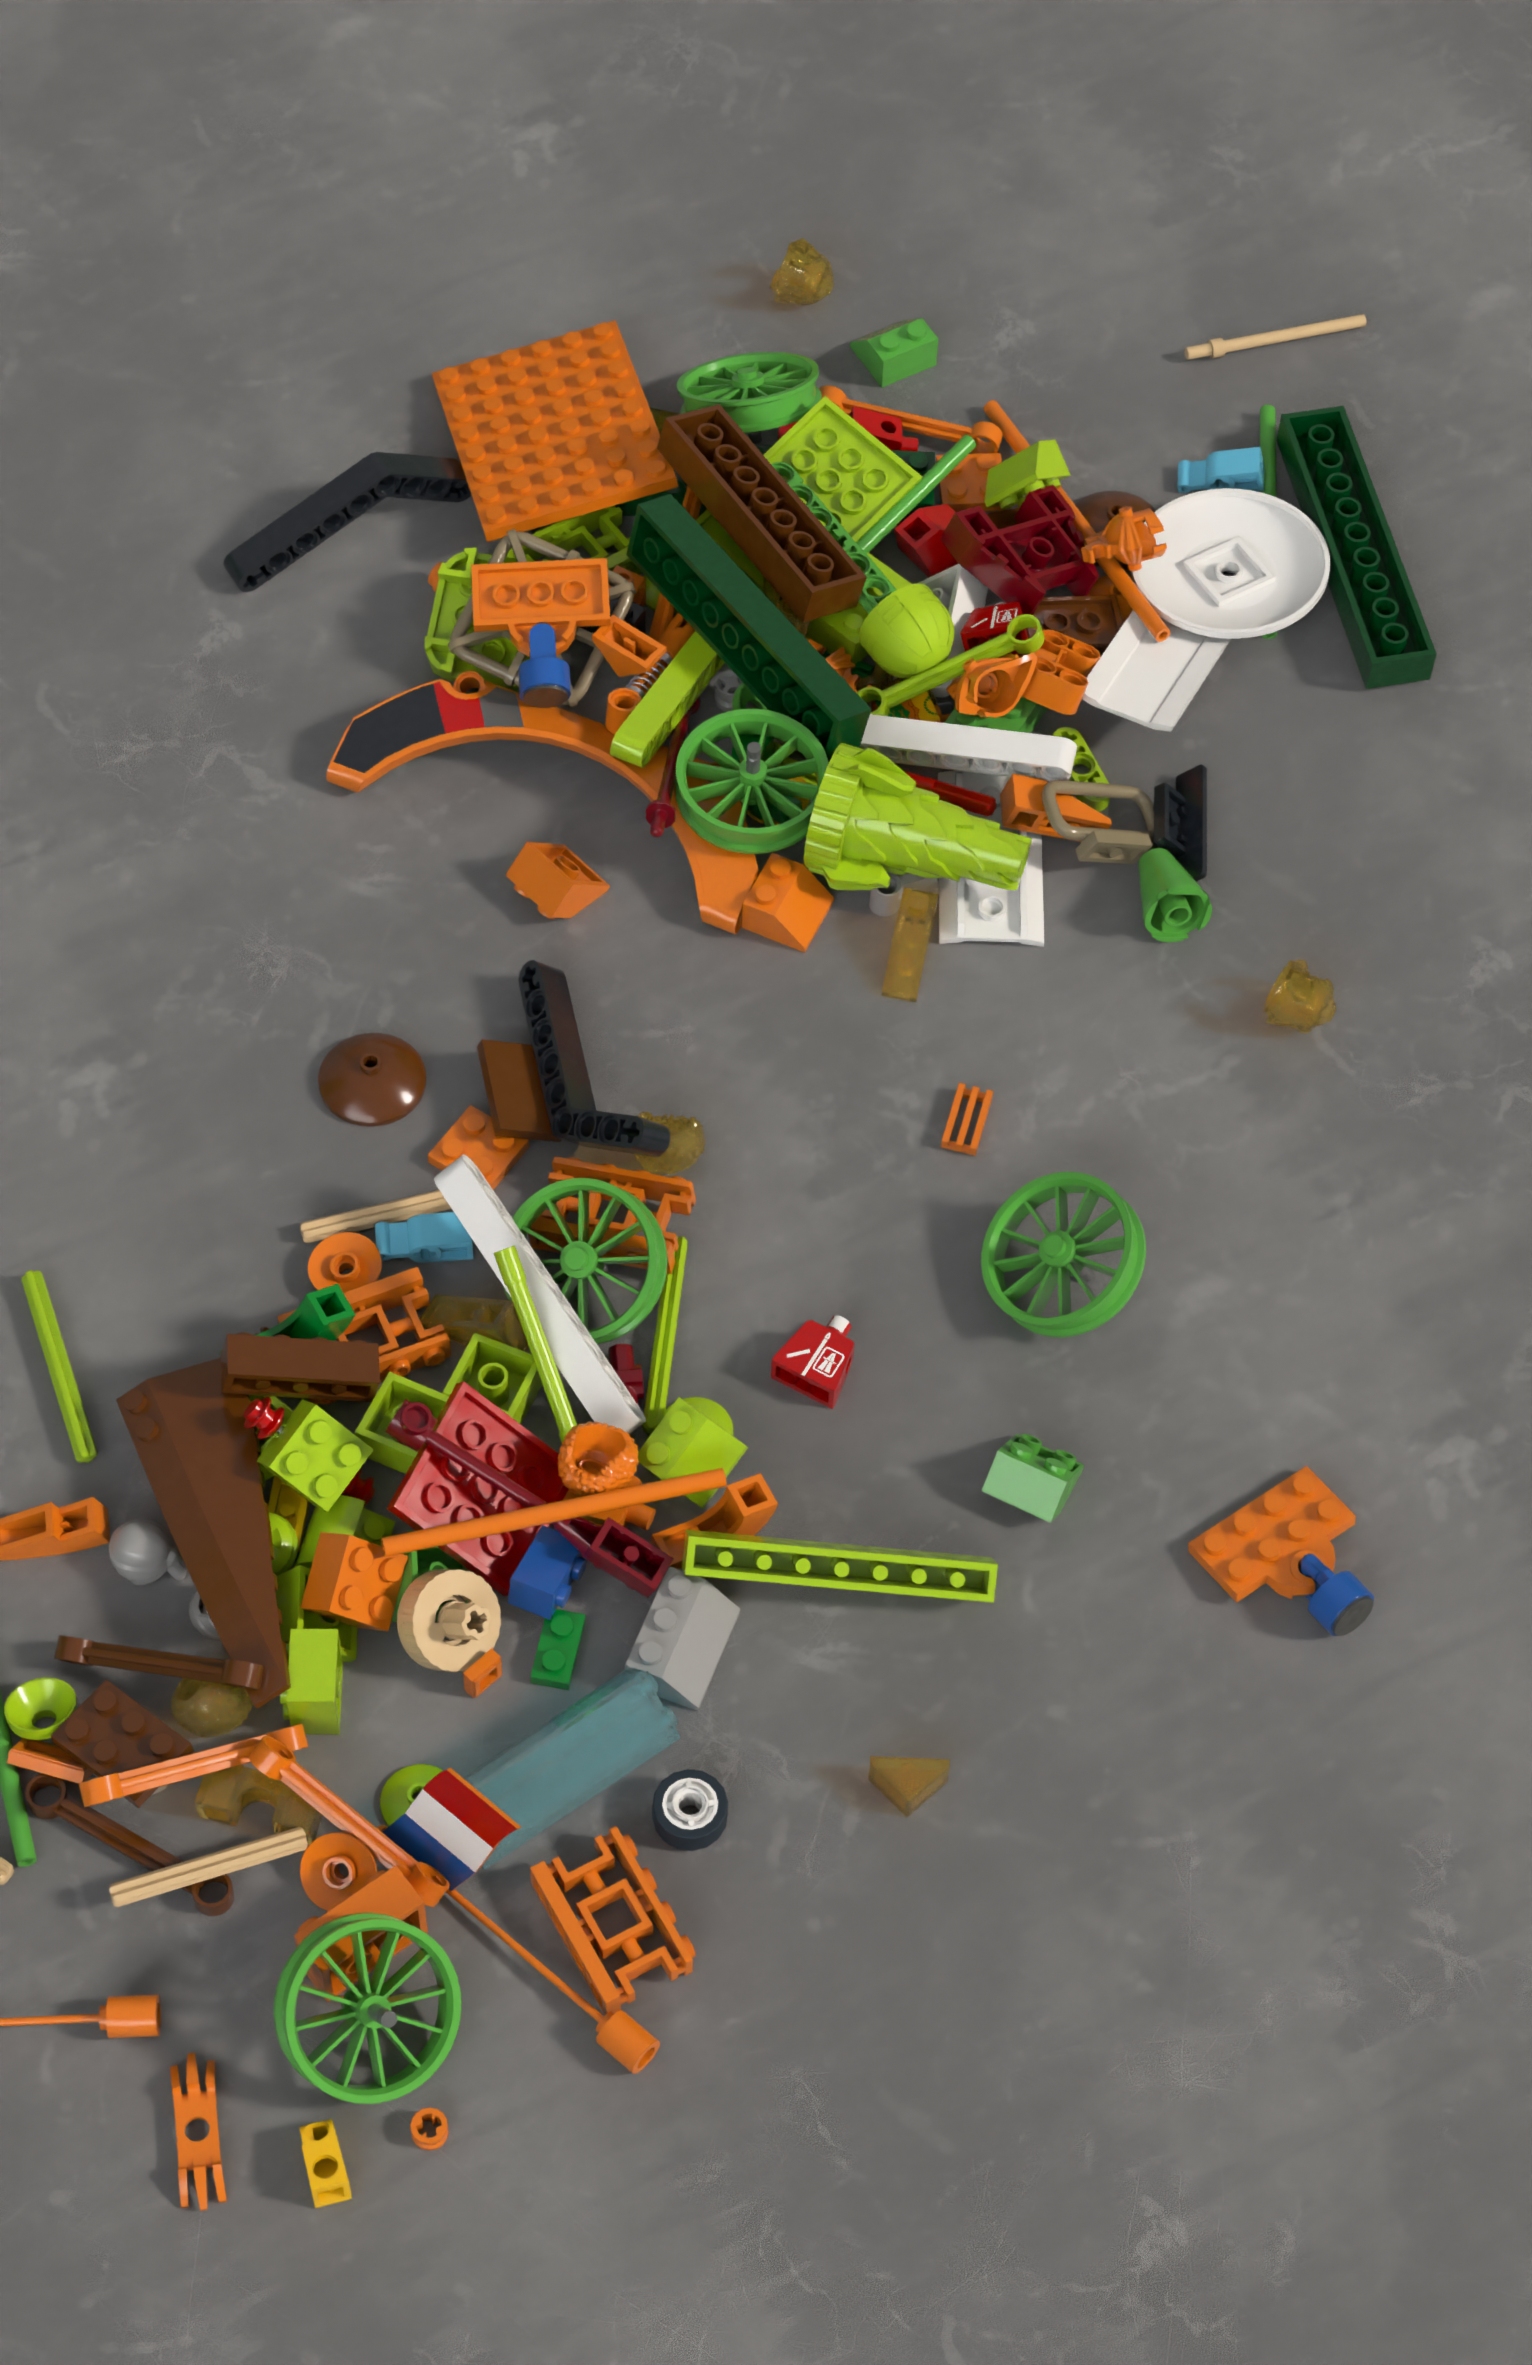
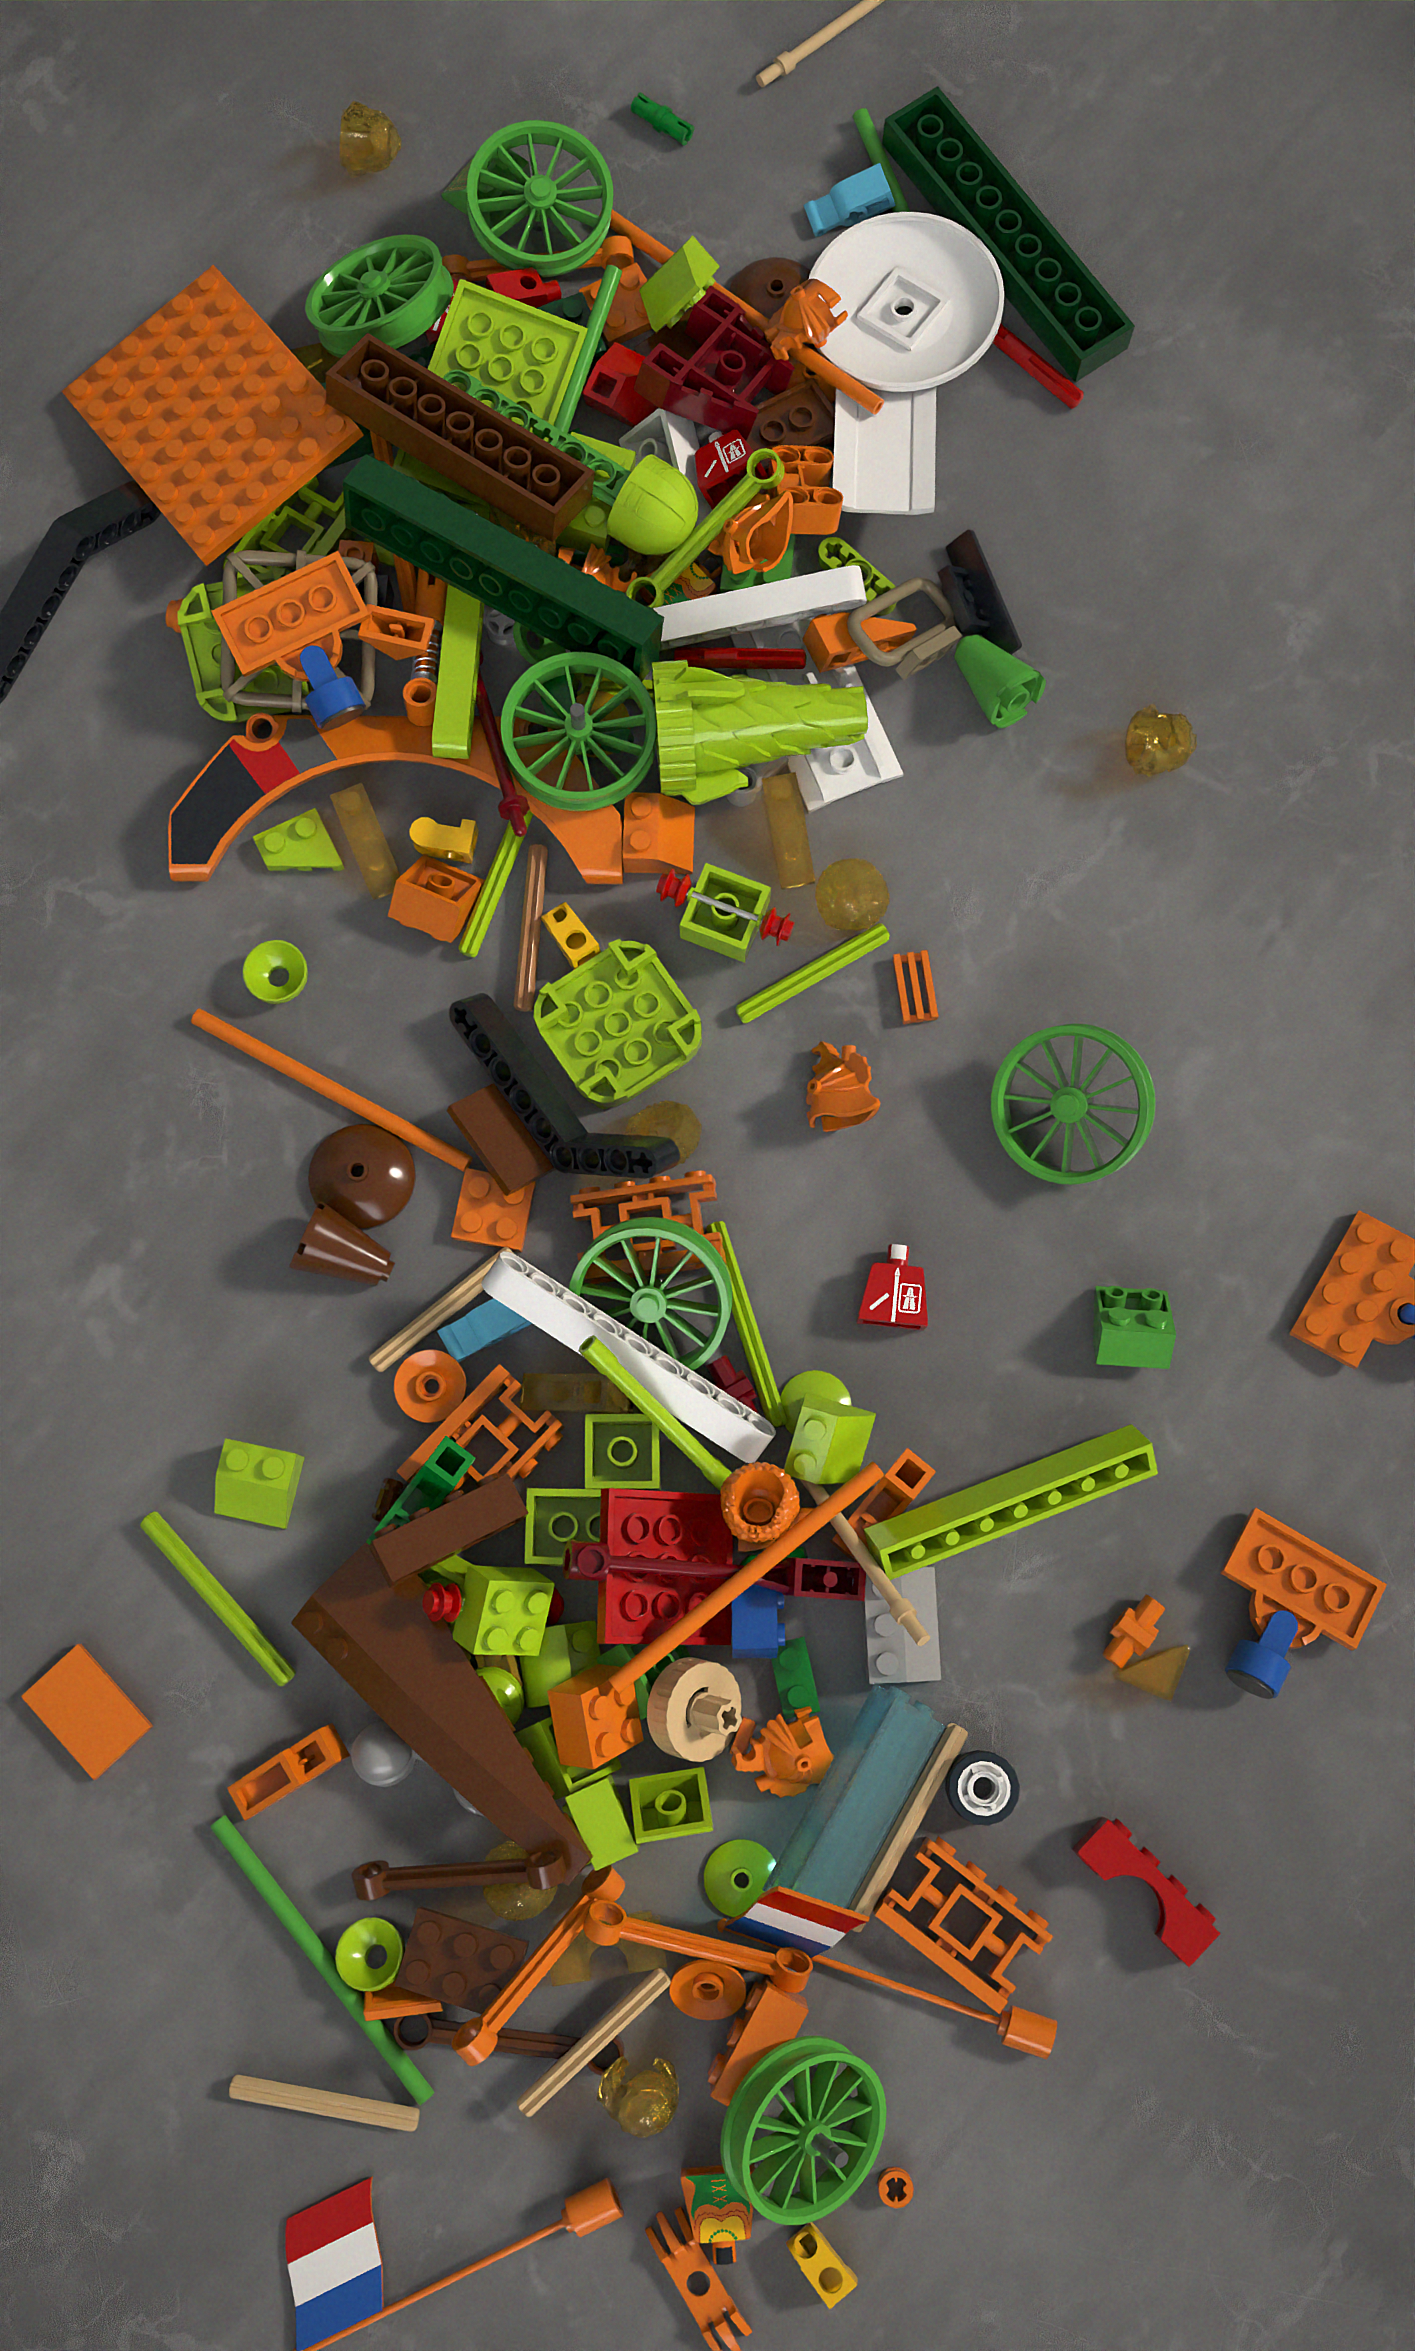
camera: 20 degrees left, 20 degrees up
(146, 1282) = (257, 1483): none -> lime slope
(228, 1930) = (643, 2103): none -> clear yellow helmet
(250, 2068) = (716, 2210): none -> torso
(319, 1120) = (340, 1250): none -> reddish brown cone
(376, 872) = (266, 959): none -> lime piece
(382, 999) = (331, 1090): none -> orange piece
(384, 1697) = (670, 1805): none -> lime slope
(454, 795) = (298, 844): none -> lime wing
(513, 1700) = (788, 1755): none -> orange helmet
(517, 806) = (366, 840): none -> clear yellow slope
(590, 838) = (445, 840): none -> yellow leg
(597, 1818) = (908, 1821): none -> tan axle
(619, 888) = (491, 890): none -> lime axle
(631, 938) = (530, 928): none -> medium nougat axle
(665, 958) = (570, 935): none -> yellow leg
(671, 1042) = (618, 1024): none -> lime plate
(683, 1588) = (900, 1608): none -> tan bar
(788, 1922) = (1180, 1925): none -> red arch
(815, 982) = (724, 911): none -> lime brick
(849, 1168) = (840, 1089): none -> orange helmet
(875, 1071) = (812, 973): none -> lime axle
(906, 1735) = (1133, 1631): none -> orange axle
(932, 366) = (539, 197): none -> bright green wheel
(943, 1016) = (851, 895): none -> clear yellow hair
(1076, 1767) = (1294, 1598): none -> orange plate
(1081, 352) = (662, 118): none -> green pin
(1333, 660) = (1037, 367): none -> red axle

